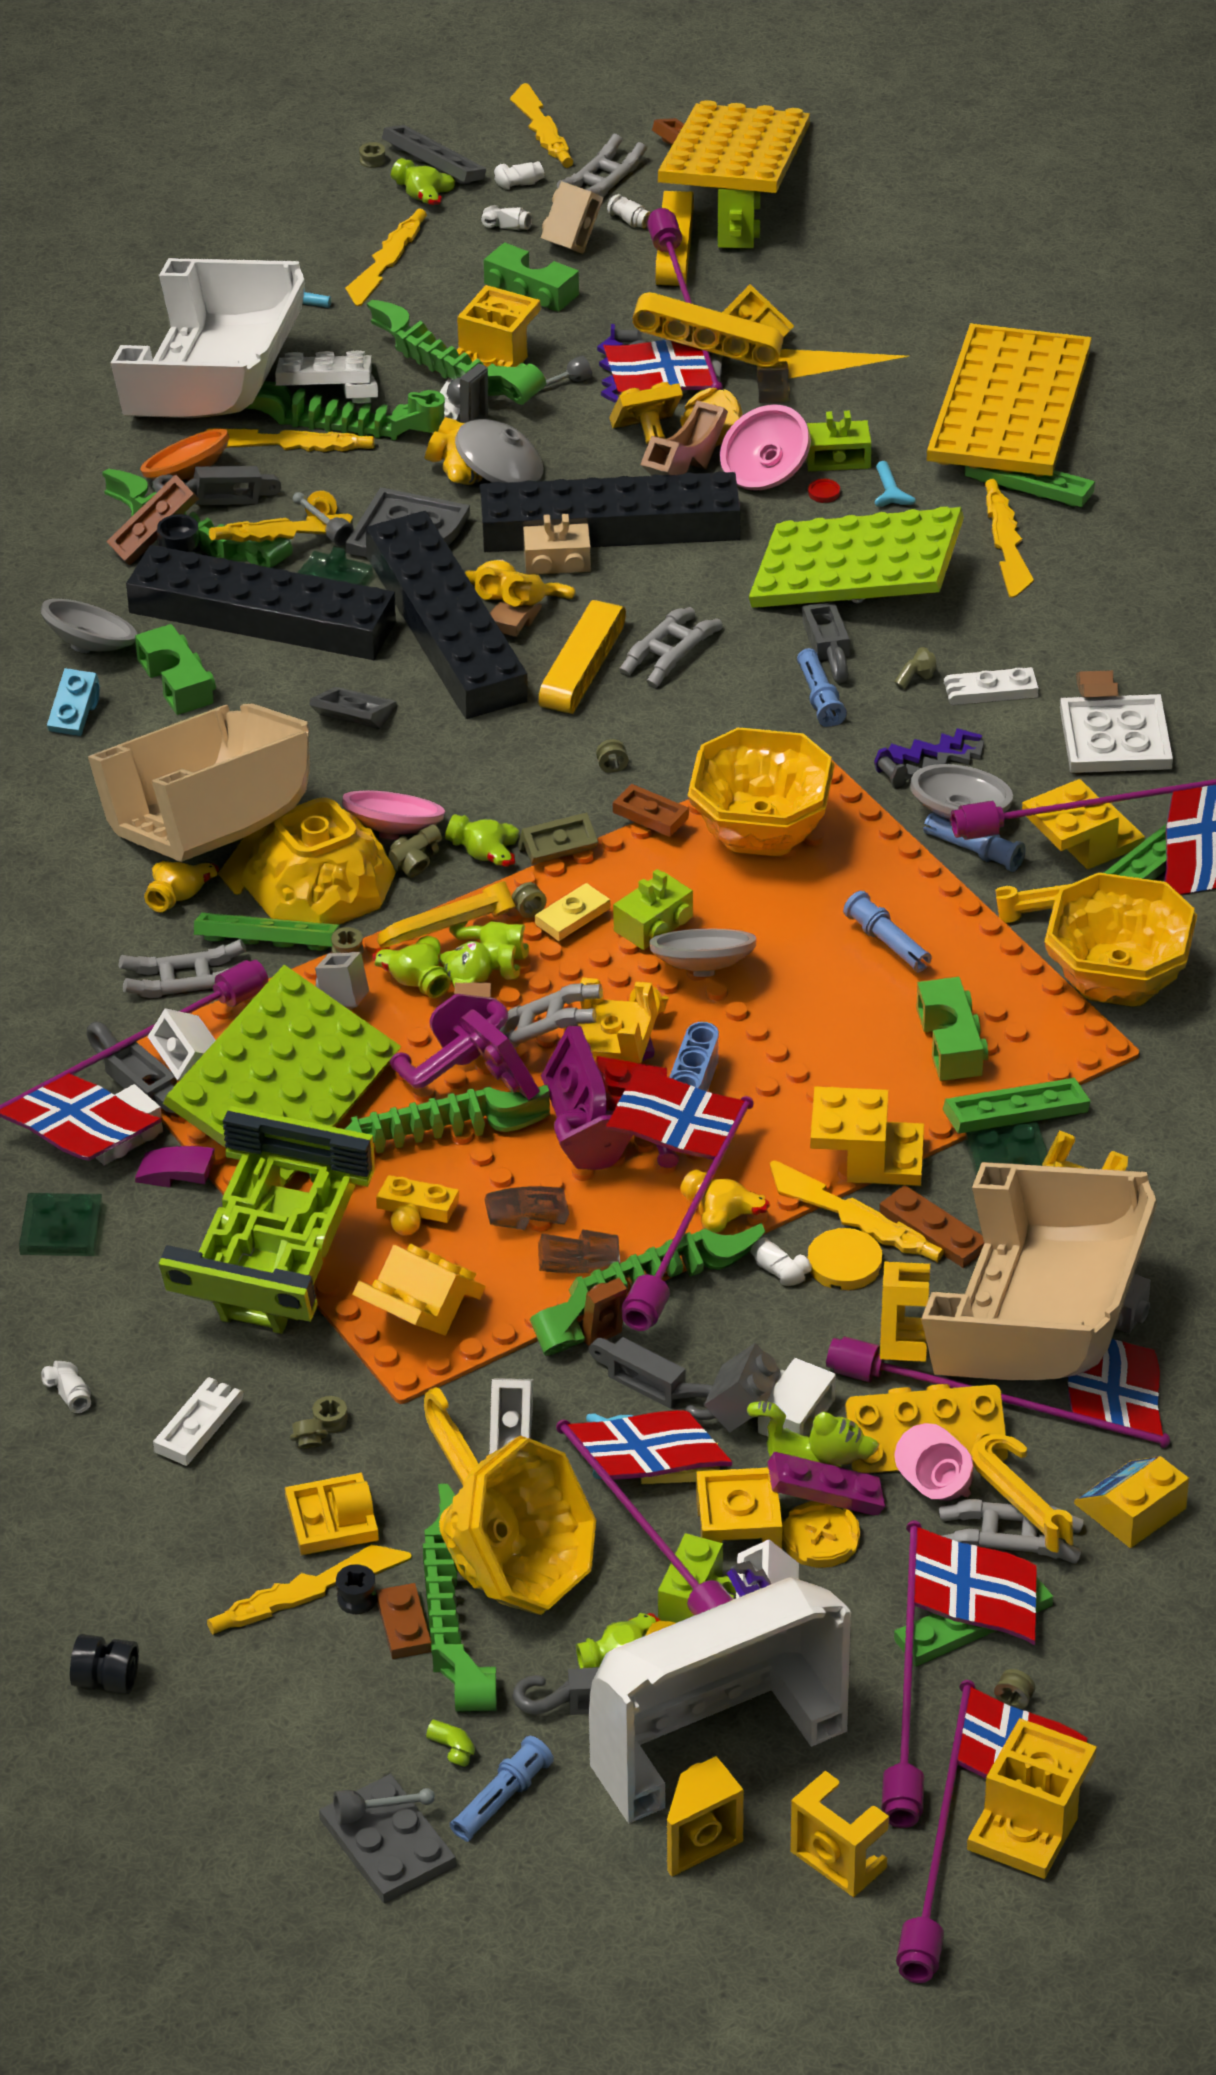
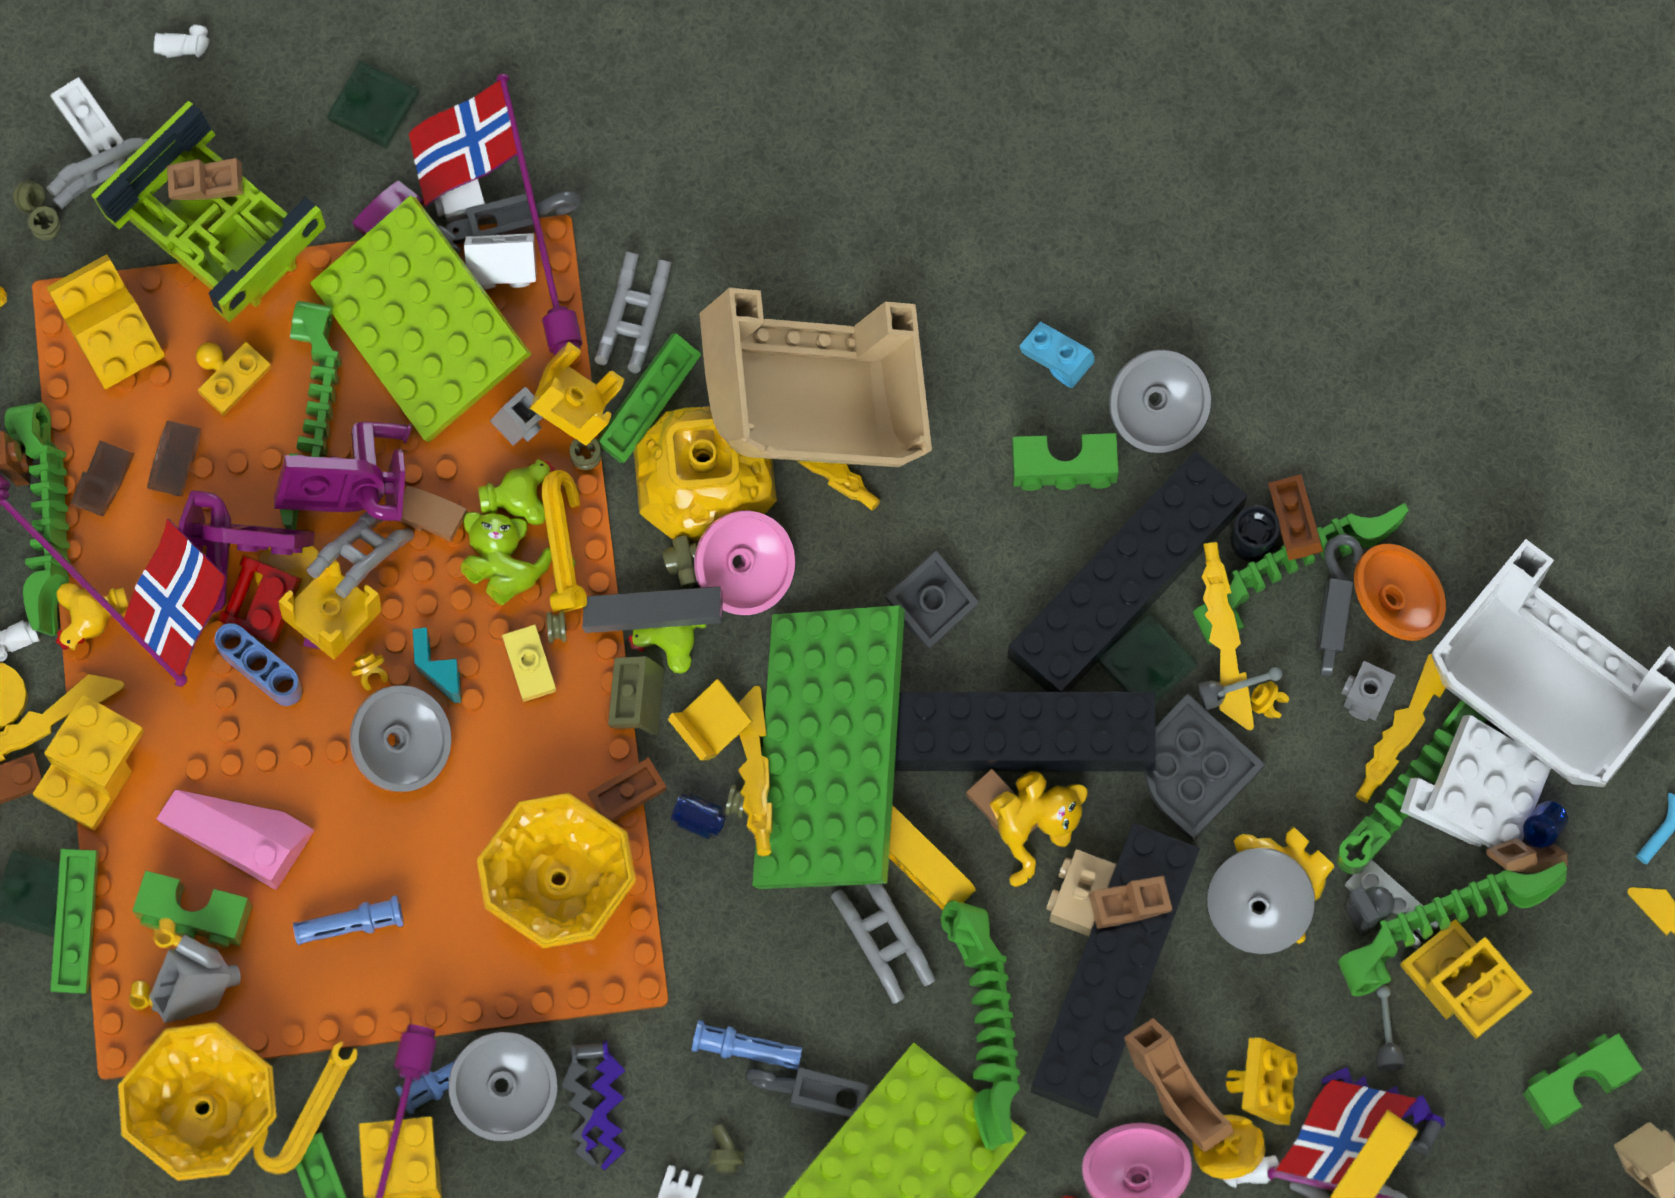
camera: 115 degrees right, 30 degrees up
(233, 1235) = (205, 181): none -> medium nougat slope
(261, 1380) = (69, 181): none -> light grey piece
(280, 454) = (1367, 691): none -> light grey brick
(321, 942) = (572, 399): none -> yellow panel
(337, 338) = (1545, 824): none -> clear blue brick
(368, 337) = (1521, 858): none -> medium nougat slope
(473, 837) = (653, 609): none -> dark grey tile
(529, 704) = (831, 746): none -> bright green plate
(548, 792) = (711, 721): none -> yellow piece
(553, 492) = (1130, 902): none -> medium nougat slope
(579, 744) = (756, 773): none -> yellow sword
(620, 957) = (440, 673): none -> teal slope
(641, 769) = (698, 816): none -> clear blue brick
(653, 909) = (482, 726): lime brick -> none
(710, 551) = (970, 931): none -> bright green piece
(857, 1023) = (242, 834): none -> bright pink wedge
(1023, 990) = (189, 979): none -> light grey torso

